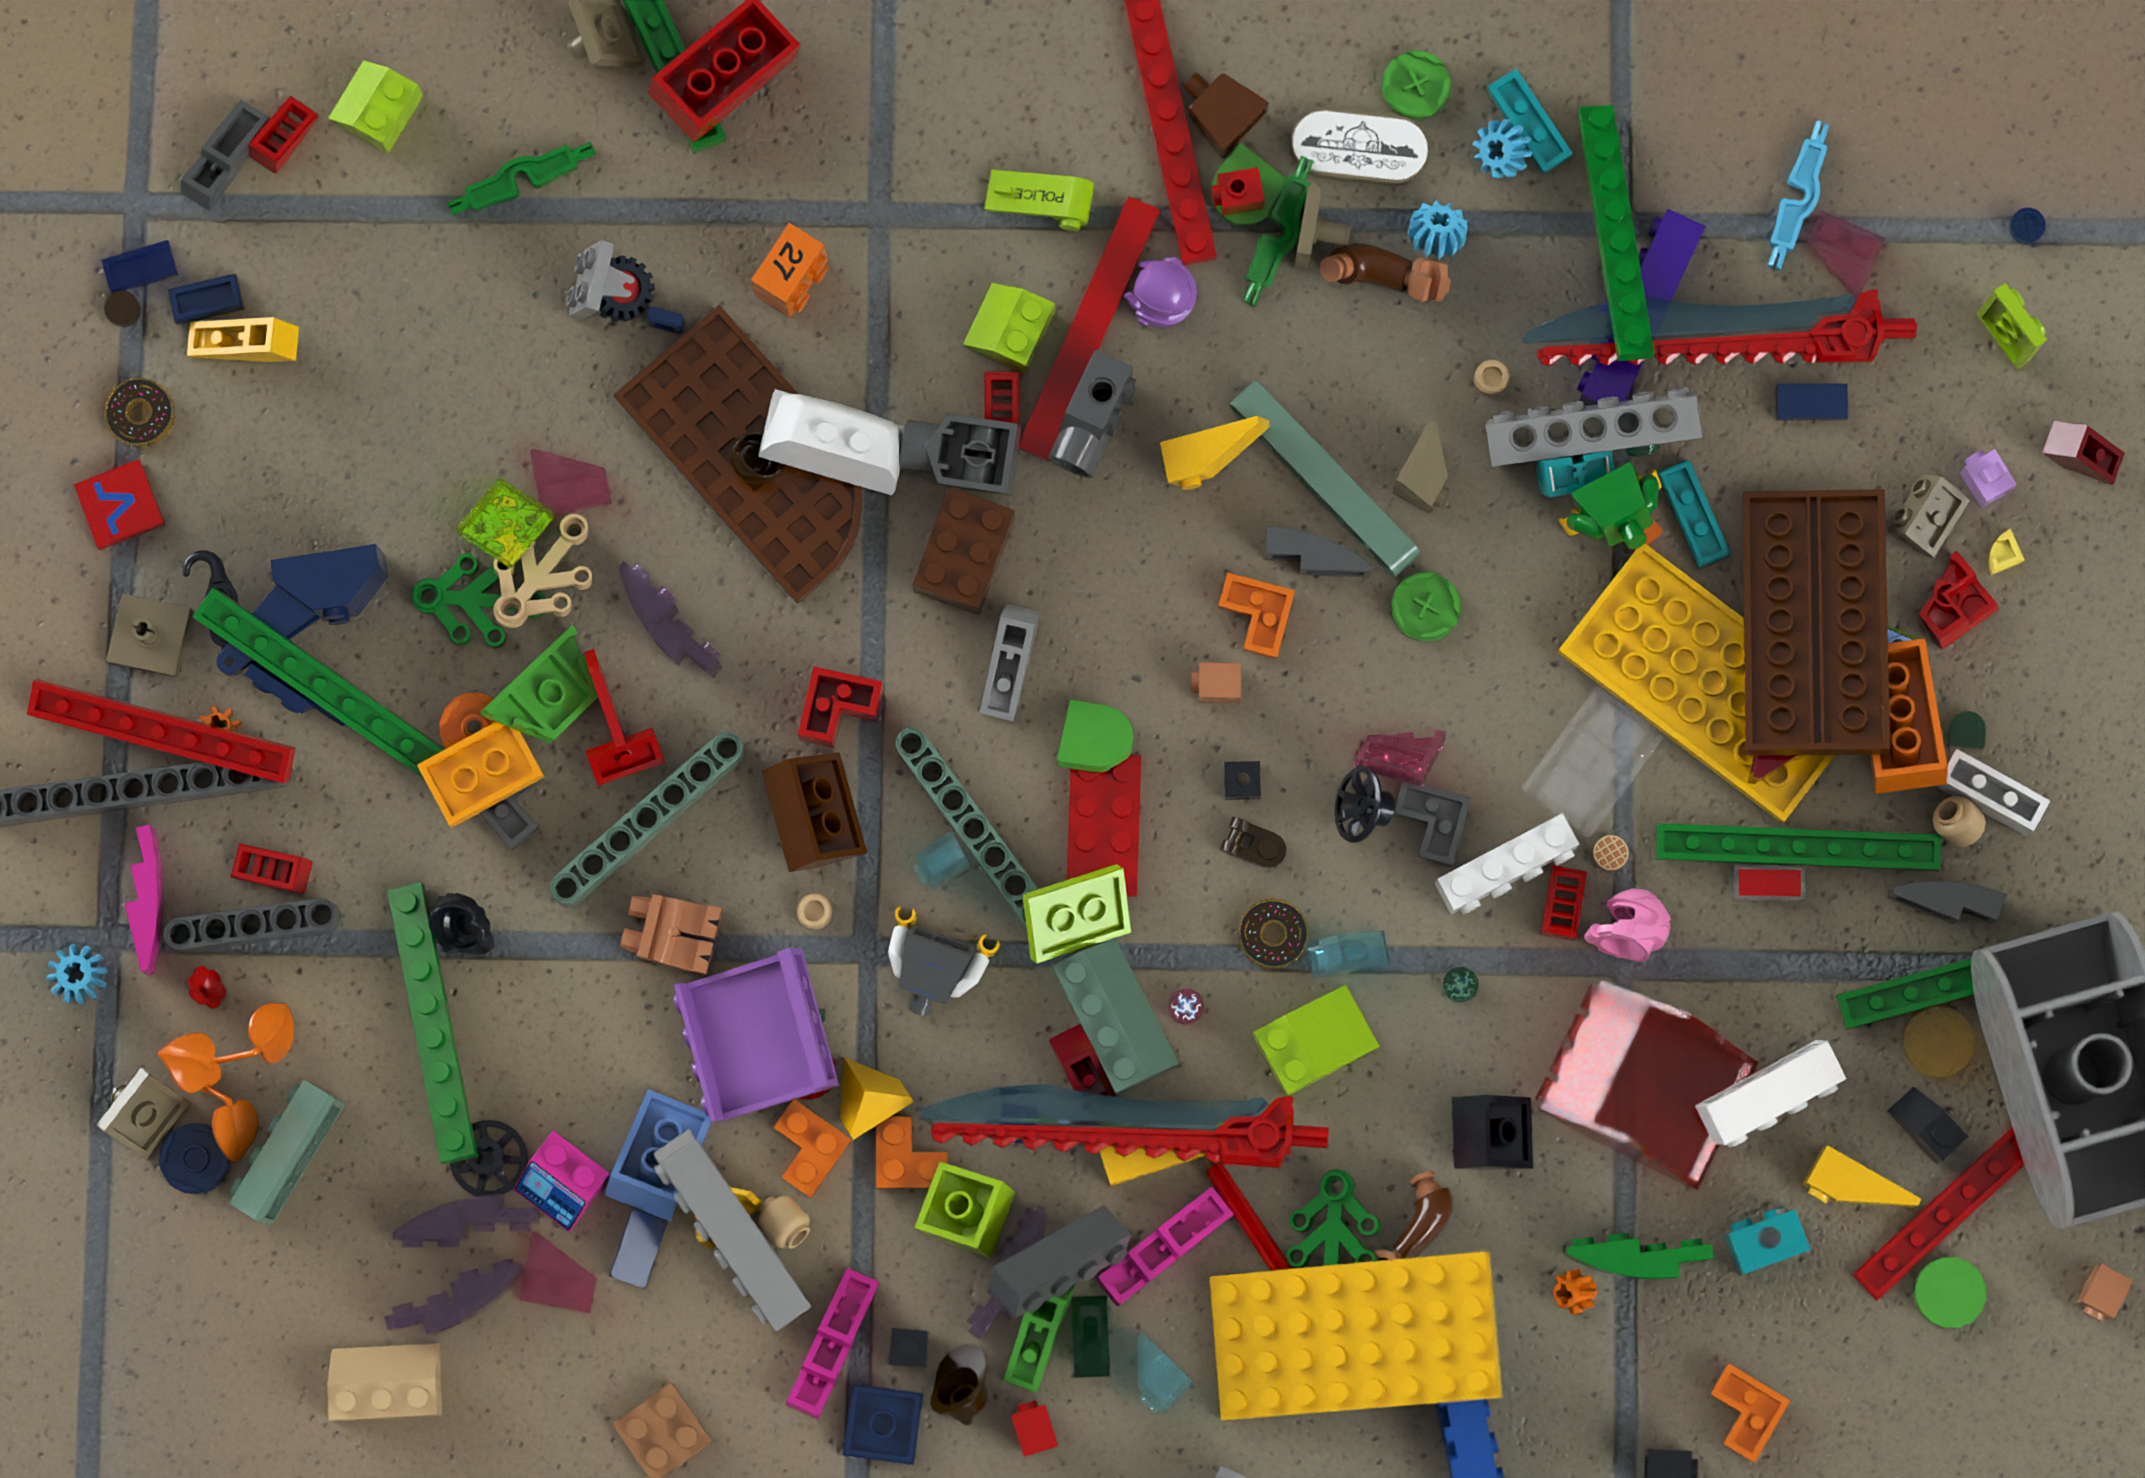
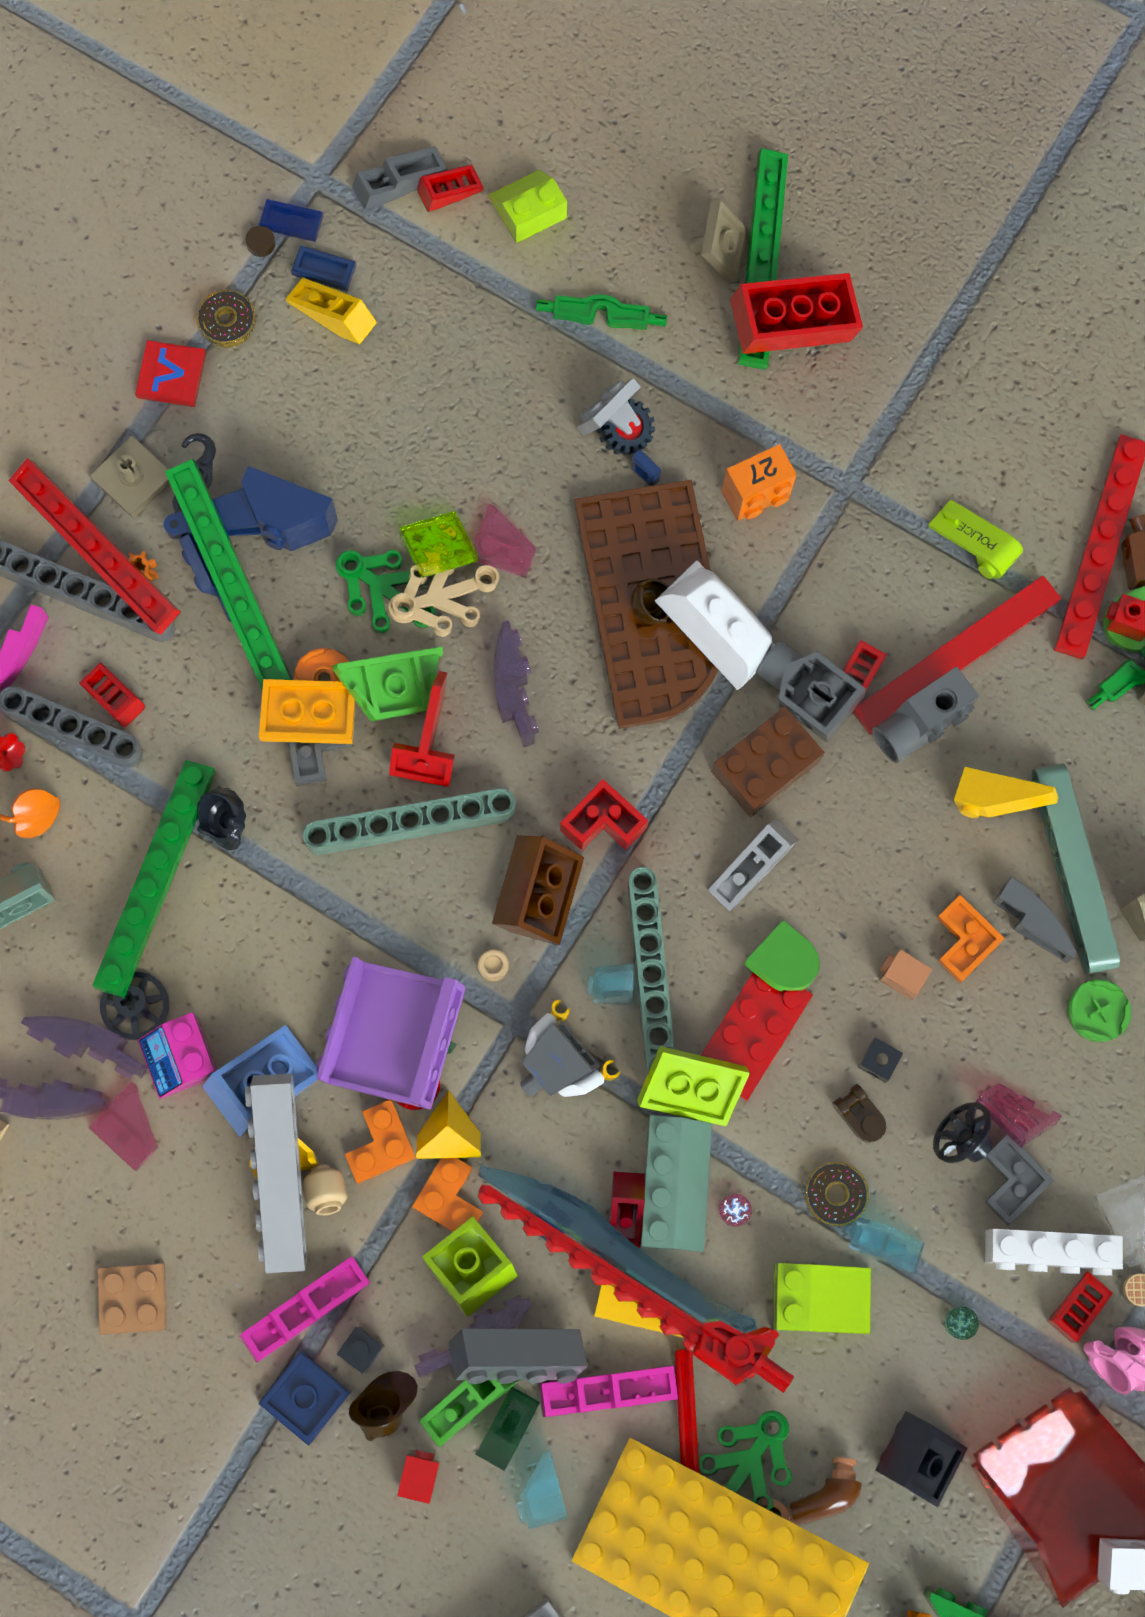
camera: 25 degrees right, 5 degrees down
(638, 1248) = (202, 1143): slope -> none
(663, 928) = (370, 910): nougat hips -> none
(1010, 326) = (900, 618): lime slope -> none
(1162, 293) = (1030, 659): medium lavender helmet -> none

